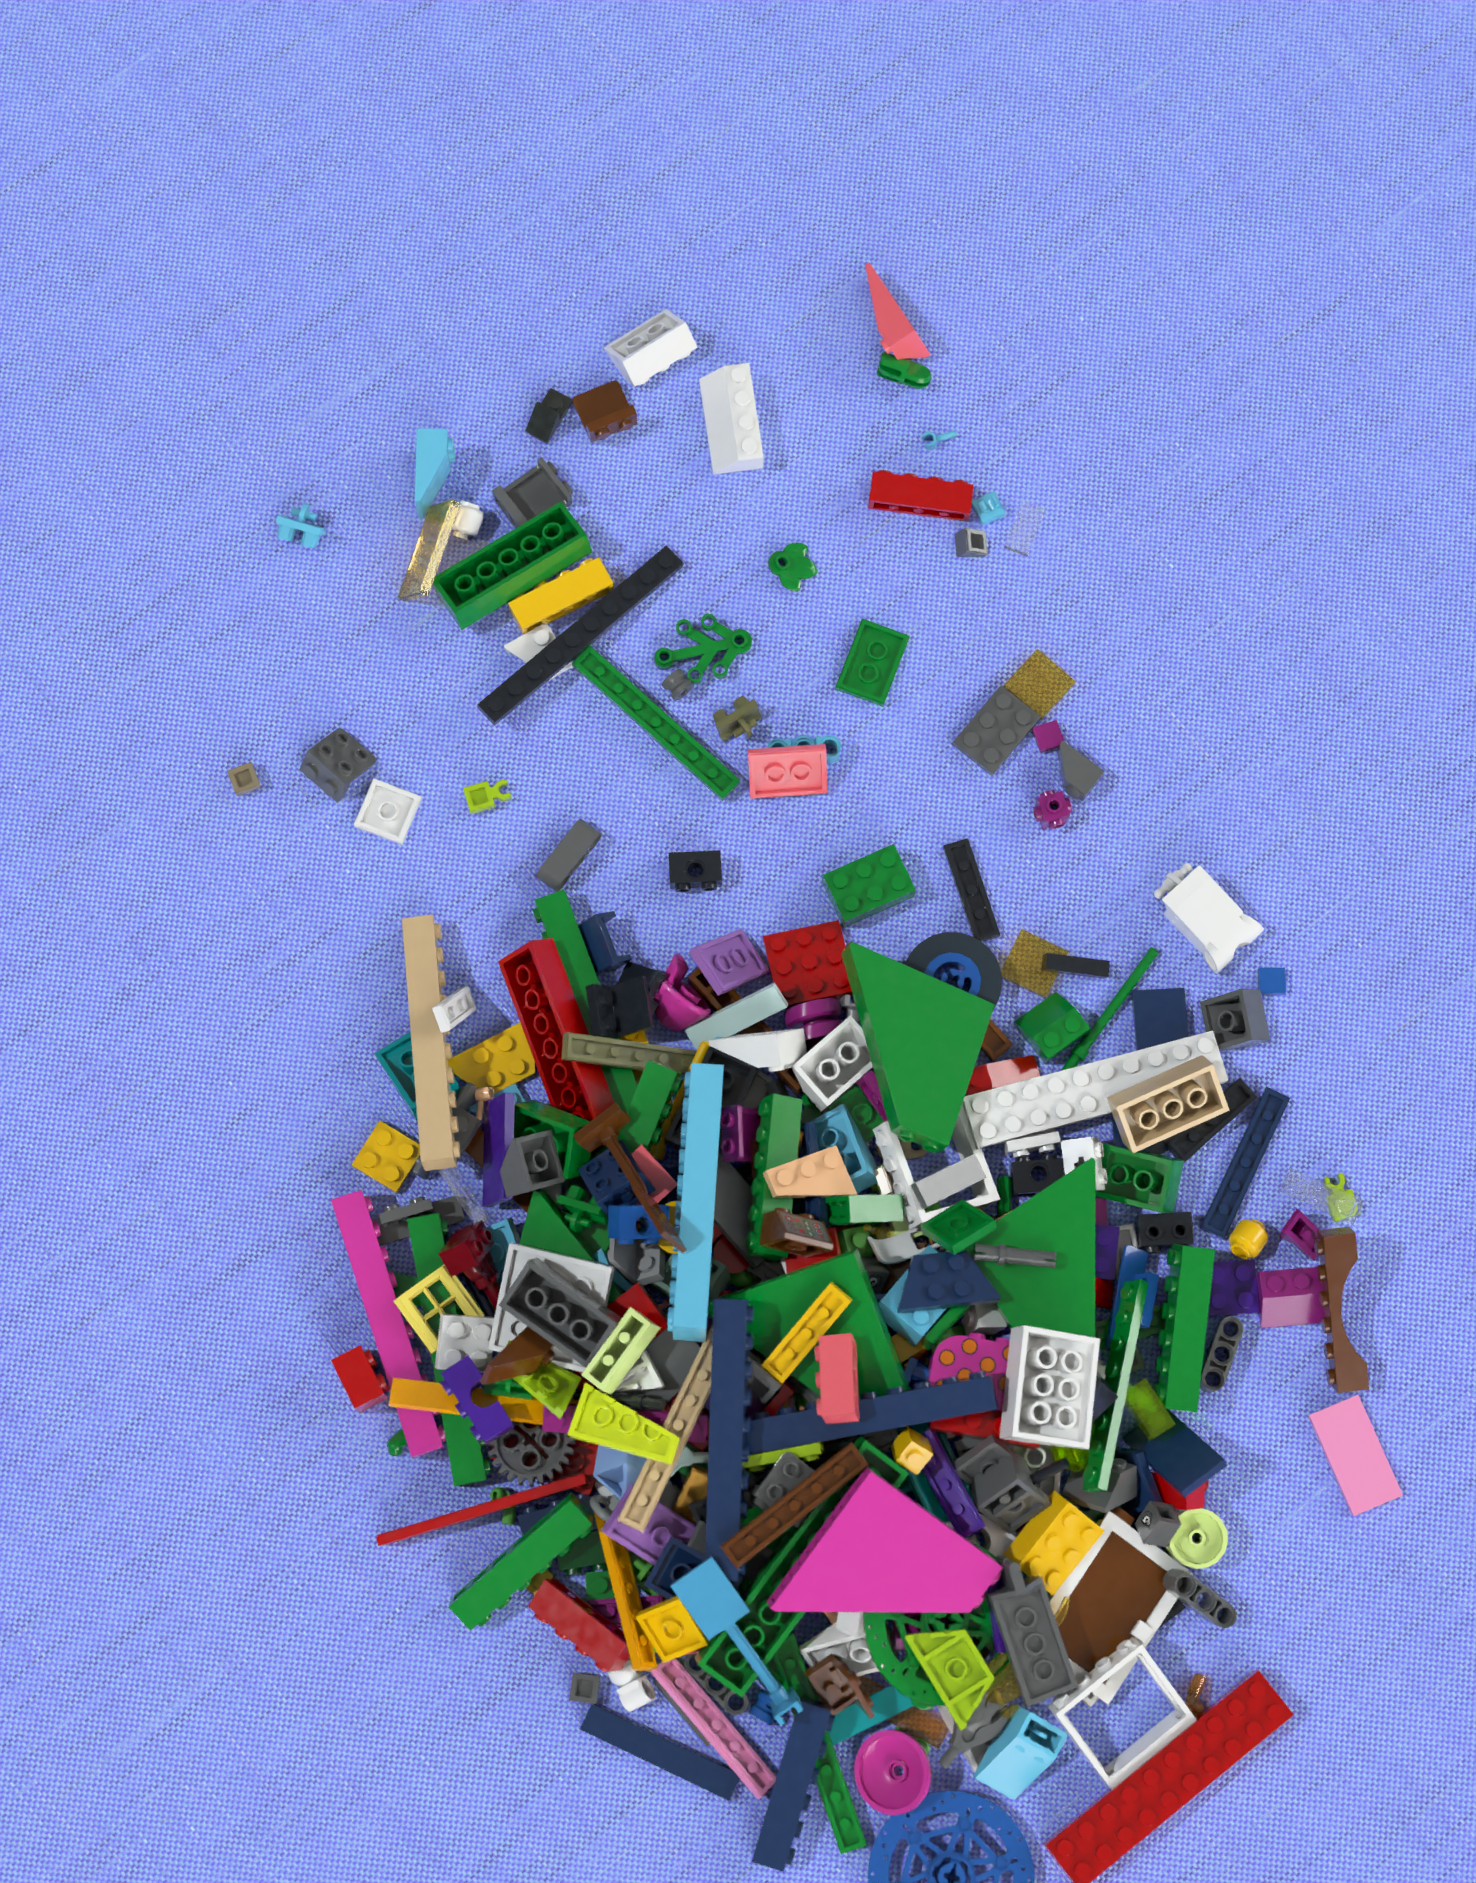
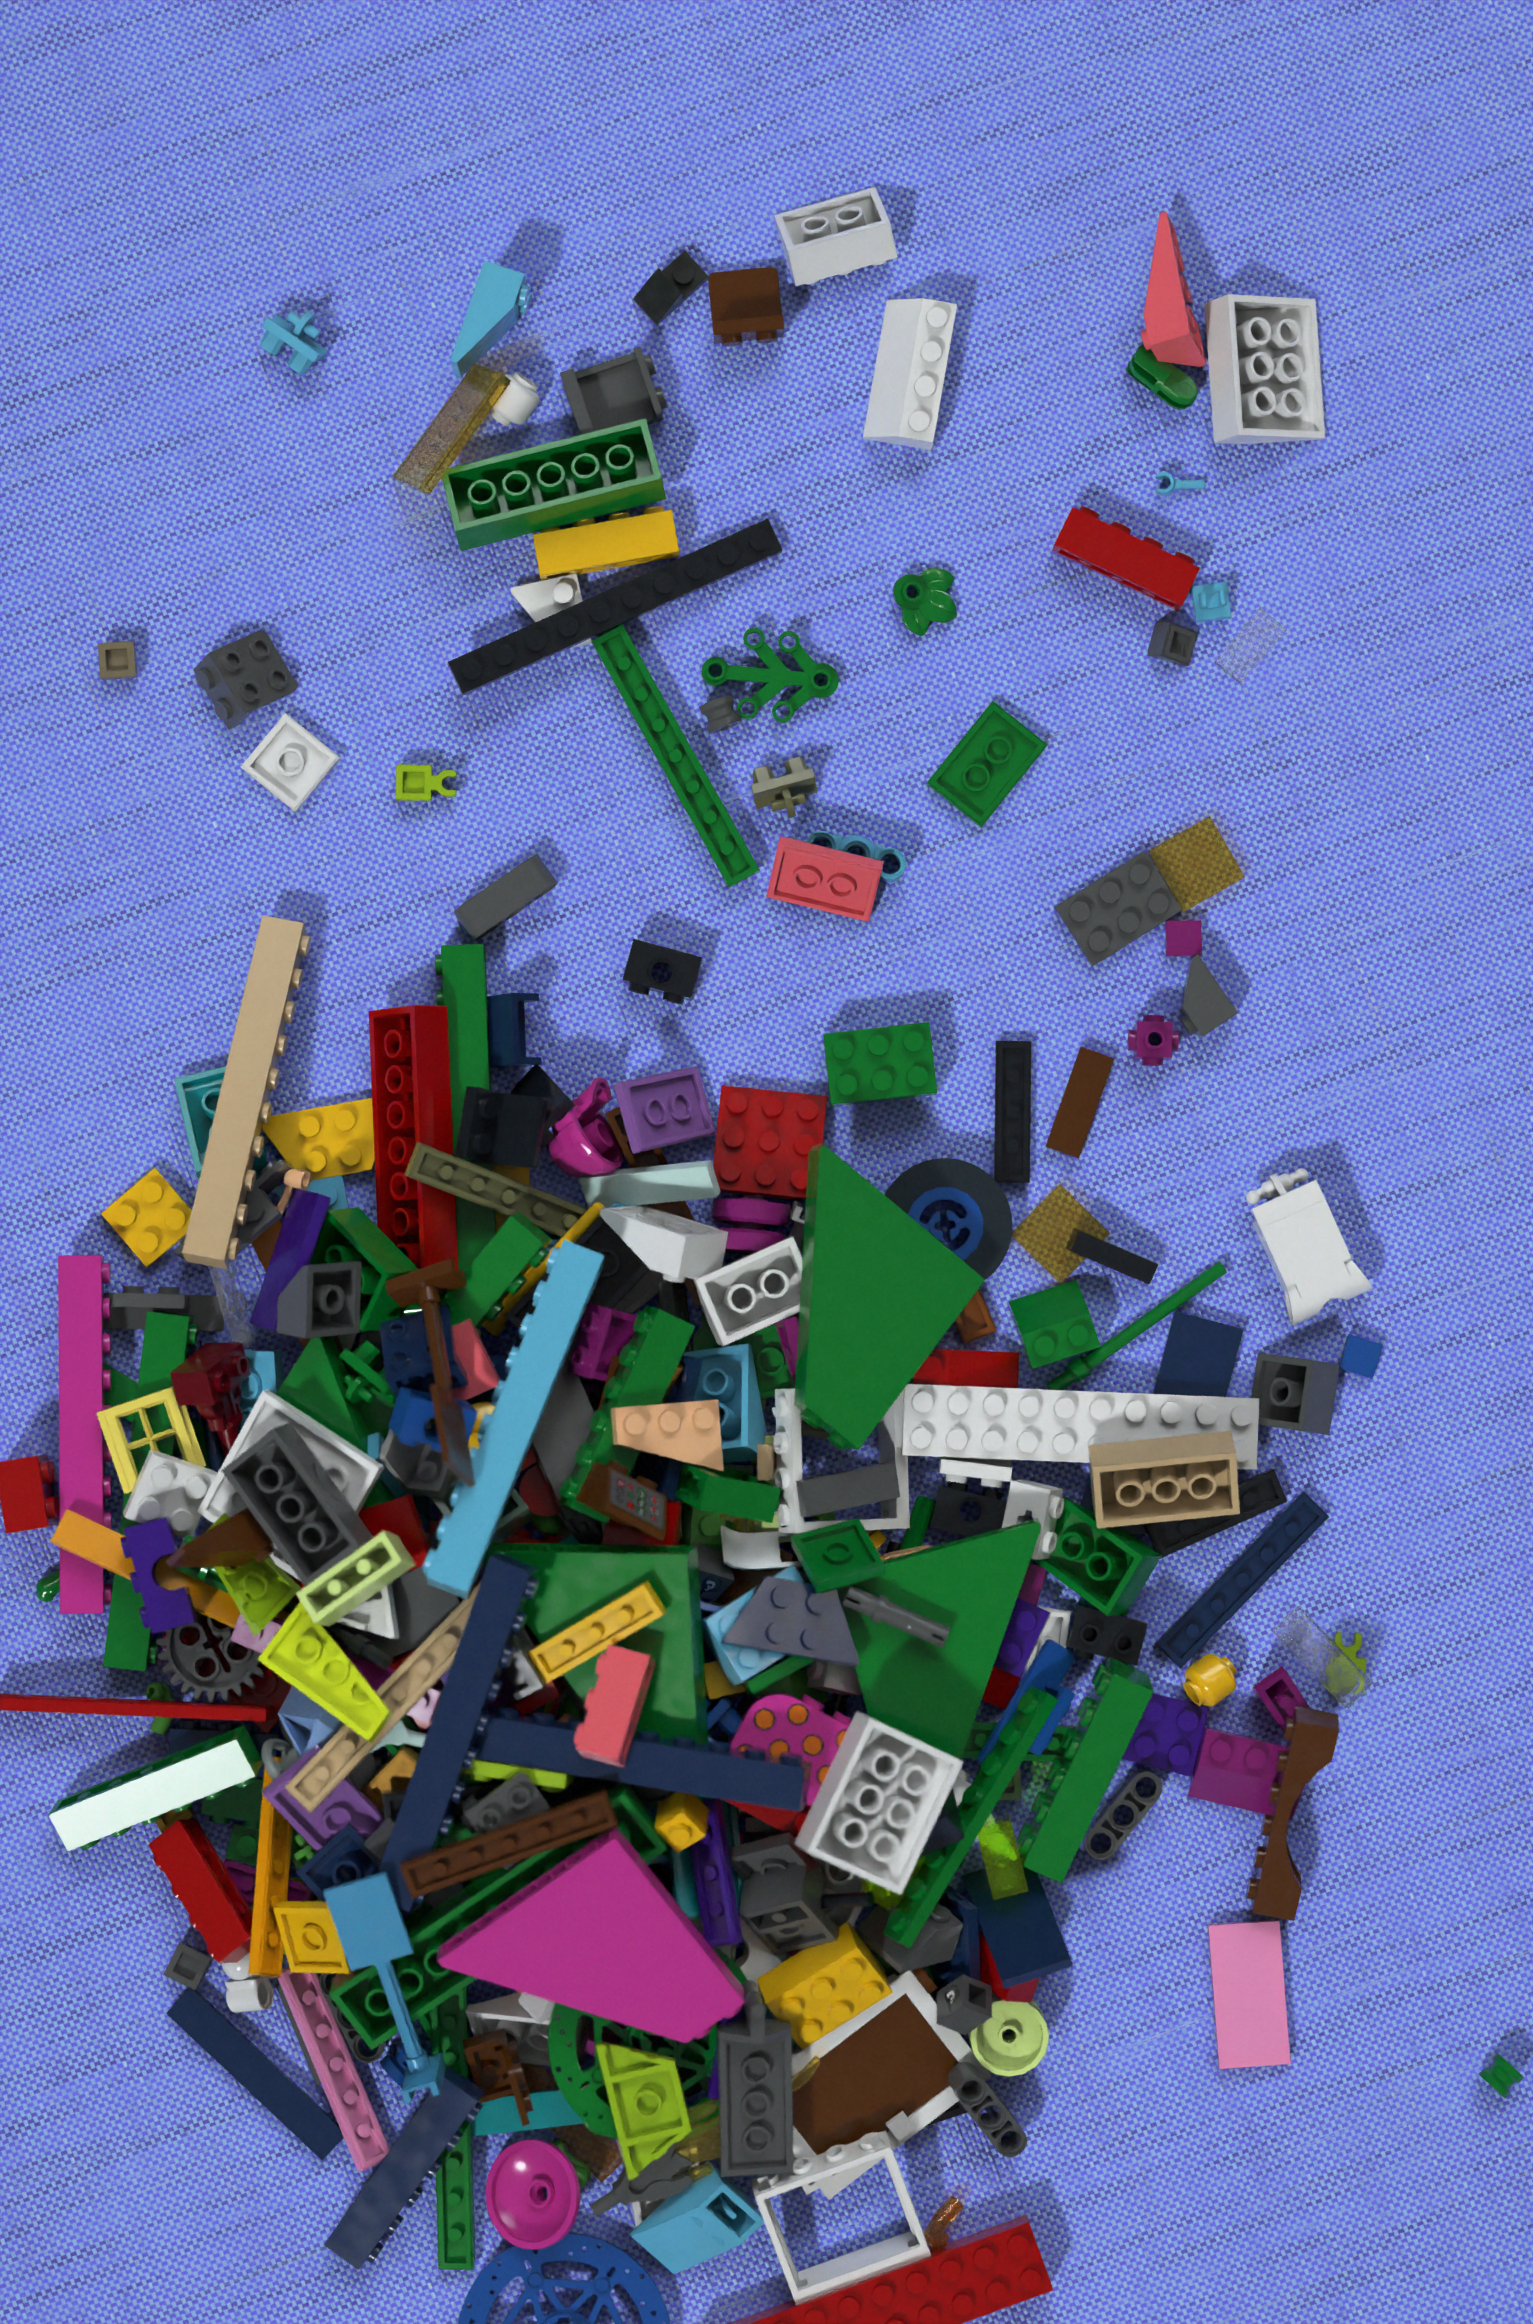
camera: 20 degrees right, 10 degrees up
(454, 1008) = (291, 1059): white tile -> none
(970, 345) = (1264, 369): none -> white slope
(1015, 870) = (1079, 1102): none -> reddish brown tile

